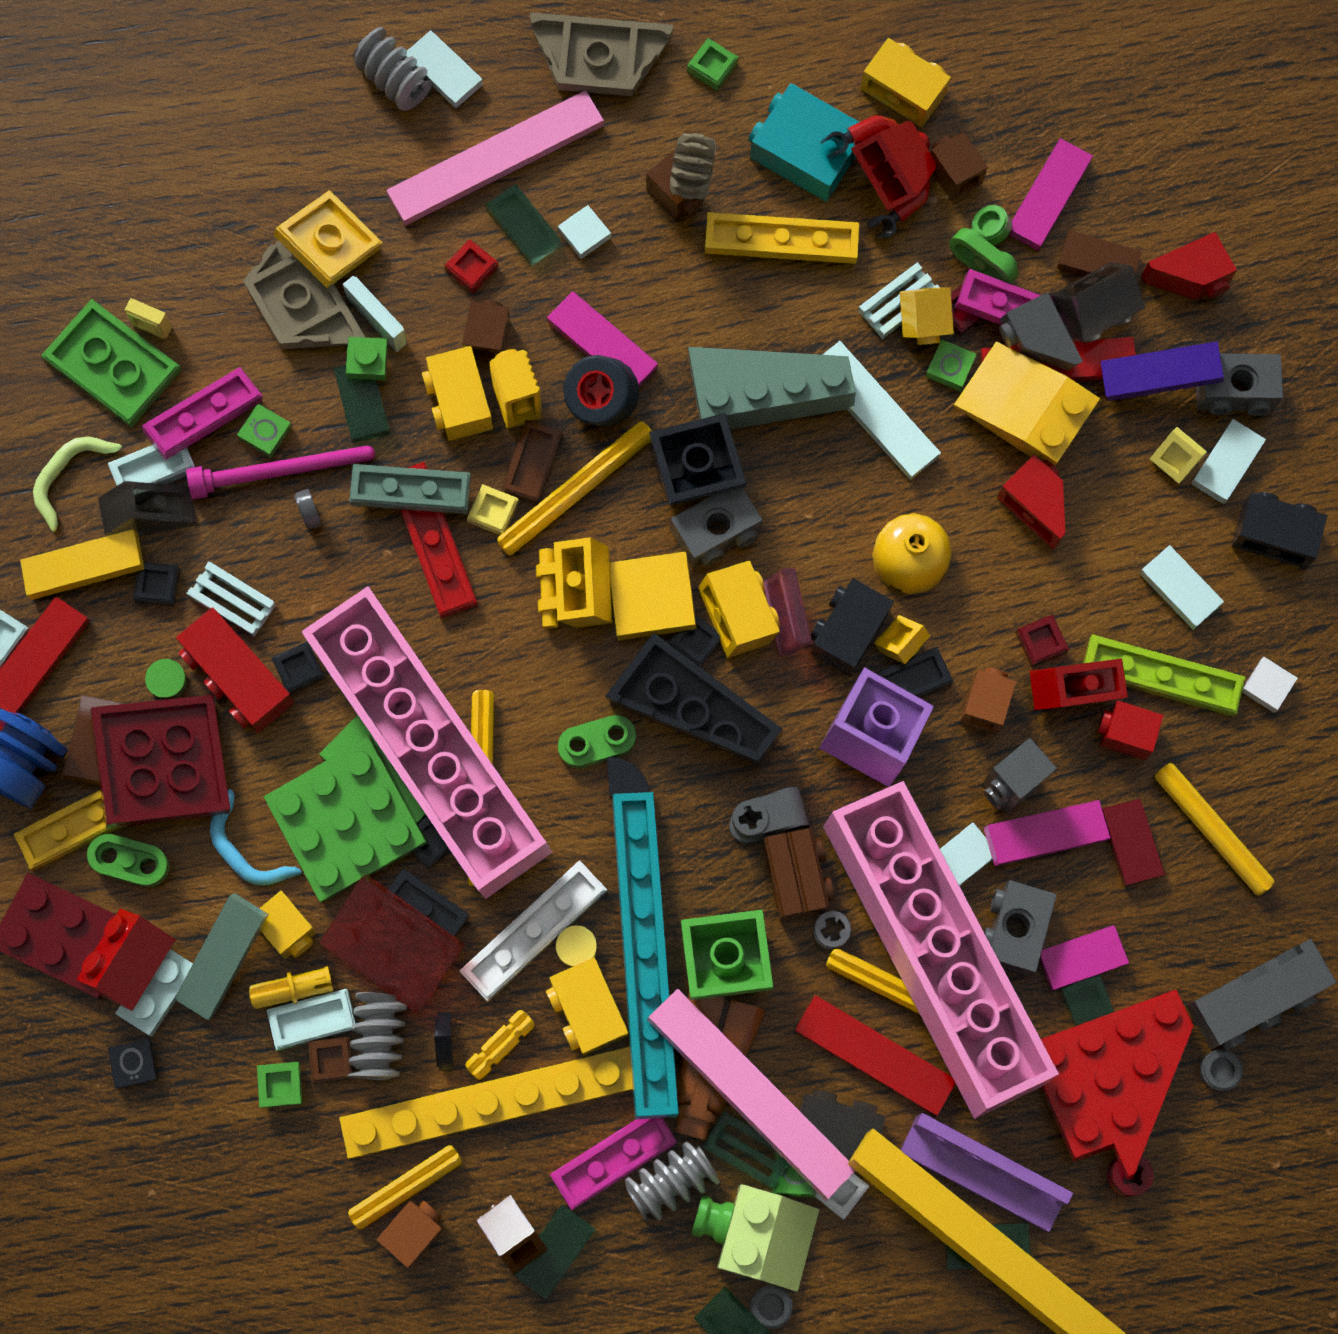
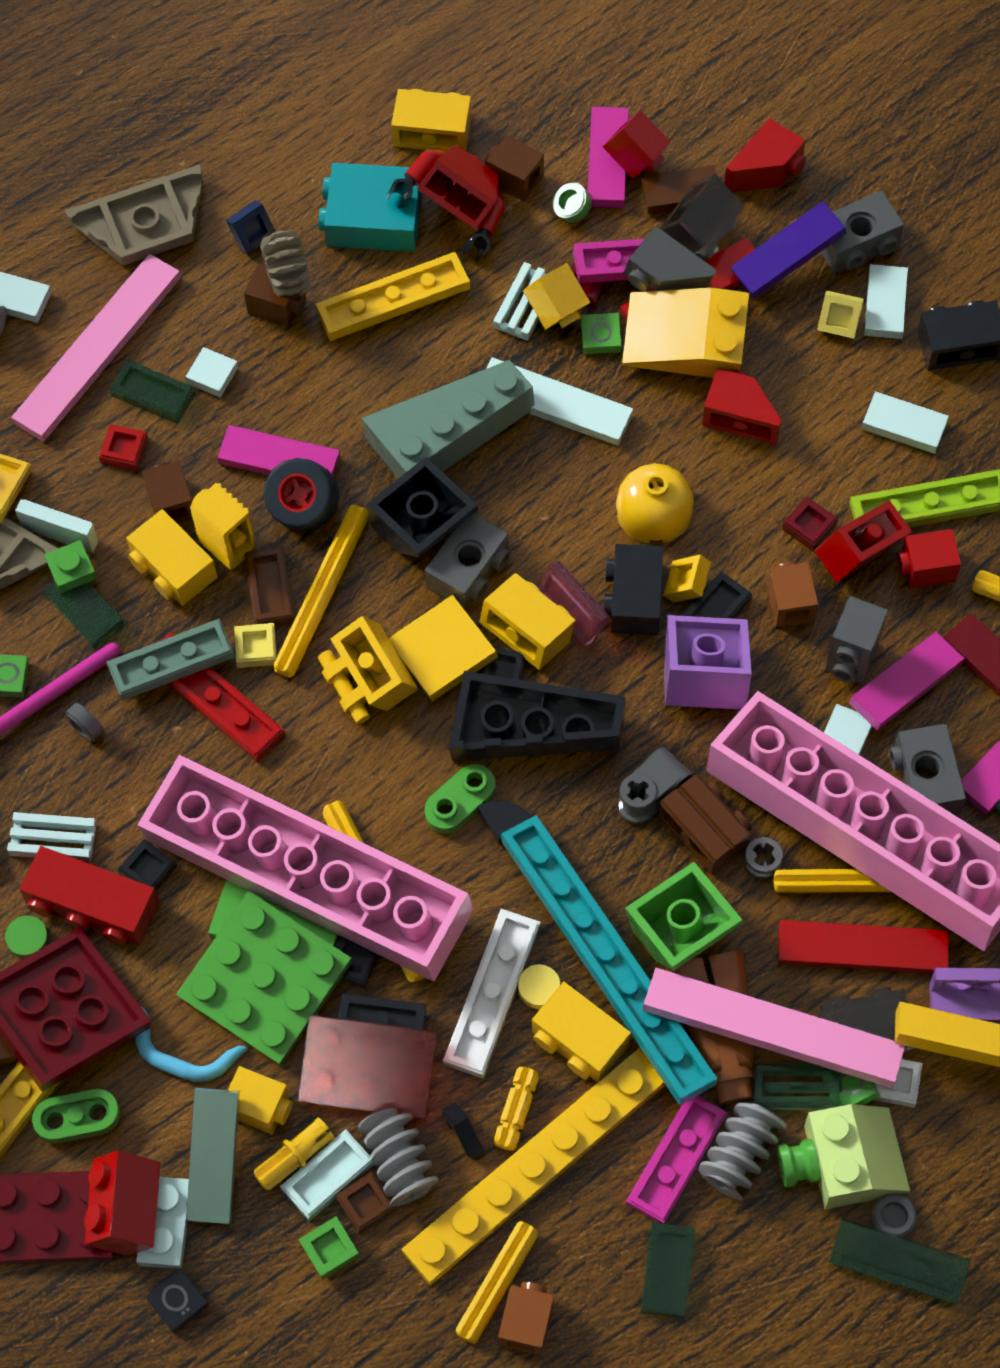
camera: 20 degrees left, 10 degrees down
(511, 1234) = (621, 1269): brick -> none
(688, 108) = (250, 226): none -> dark blue tile
(712, 64) = (251, 183): bright green tile -> none
(979, 255) = (567, 228): bright green plate -> none
(1079, 199) = (637, 145): none -> red brick

